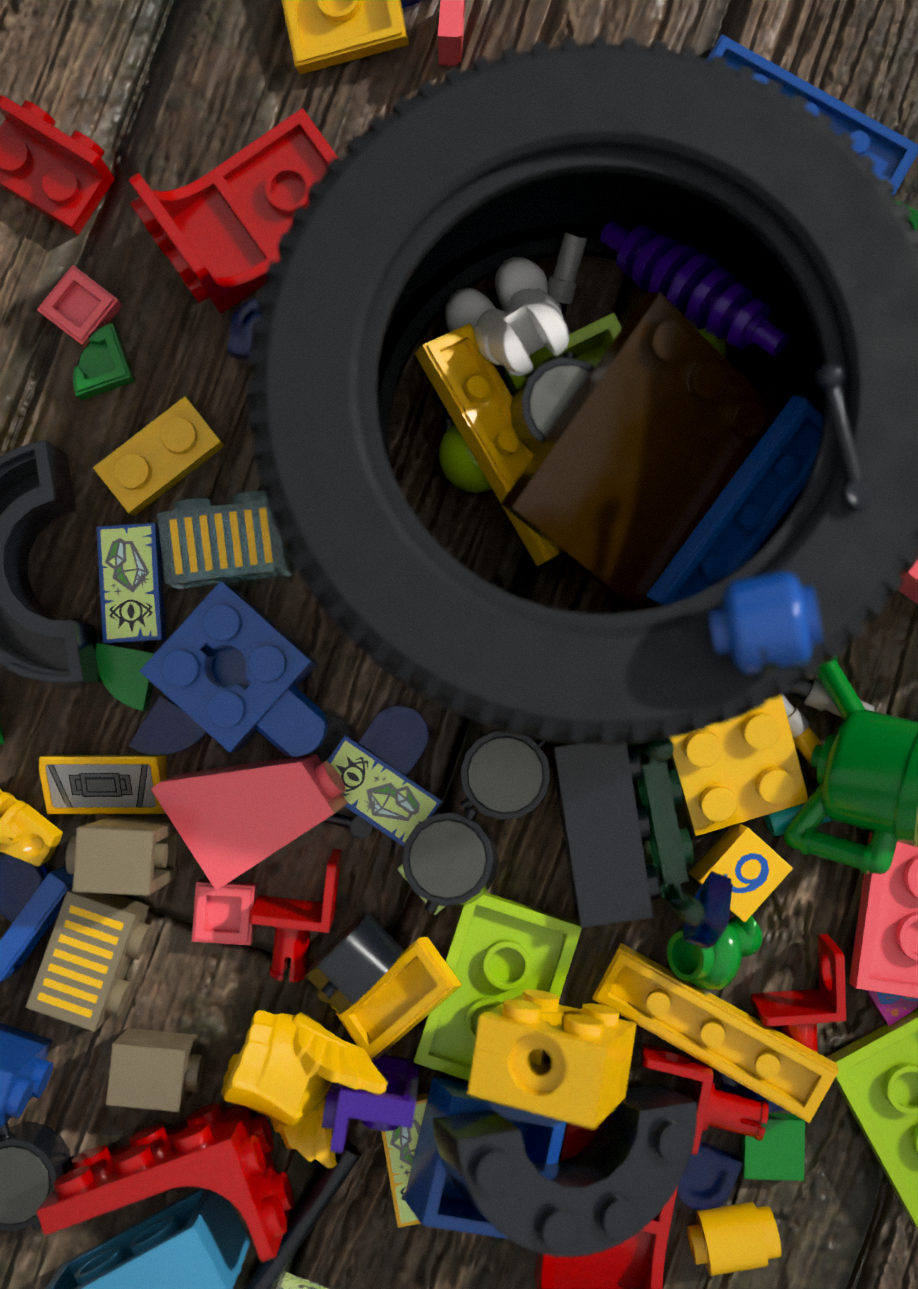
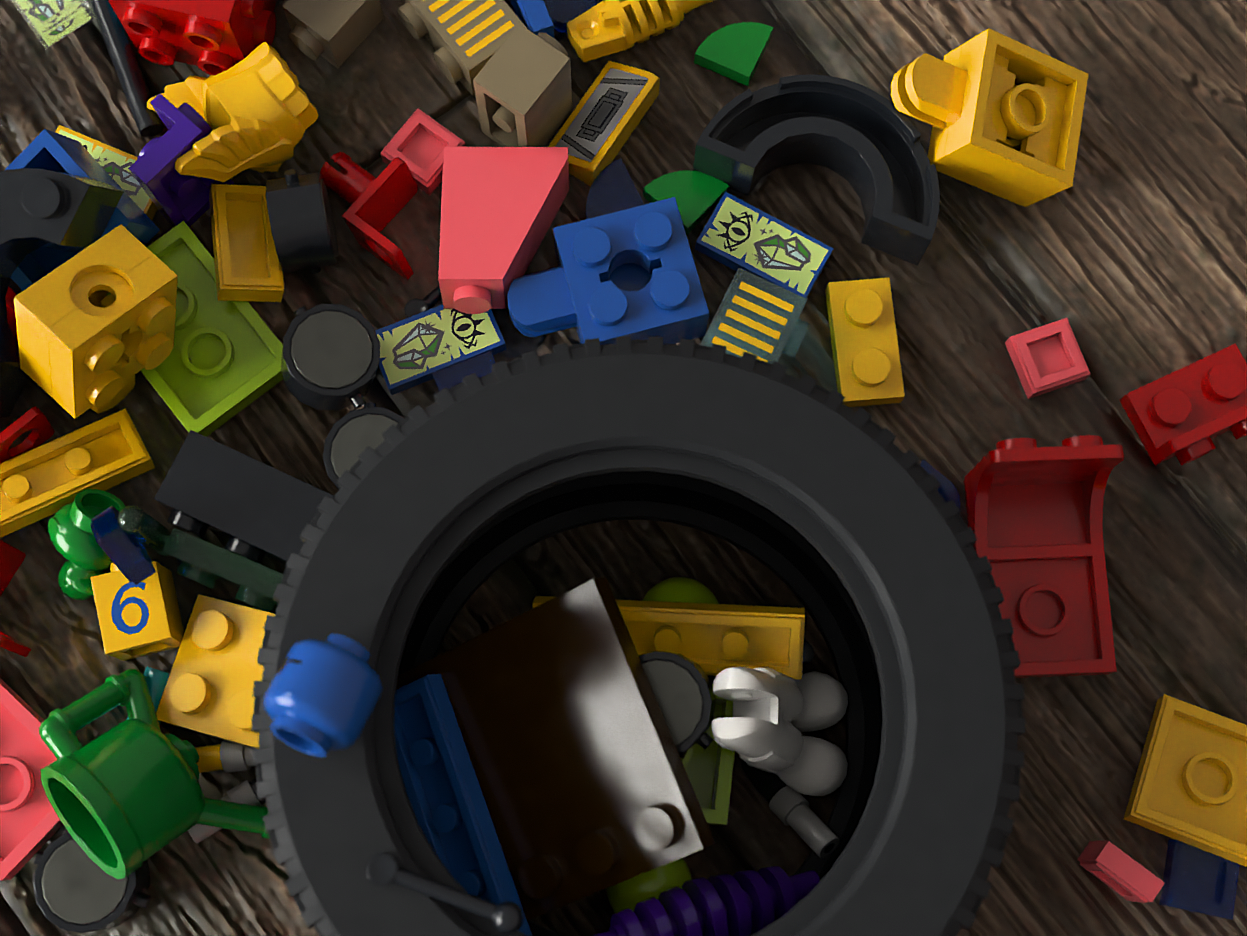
camera: 125 degrees right, 10 degrees down
(102, 364) = (981, 346): green tile -> none

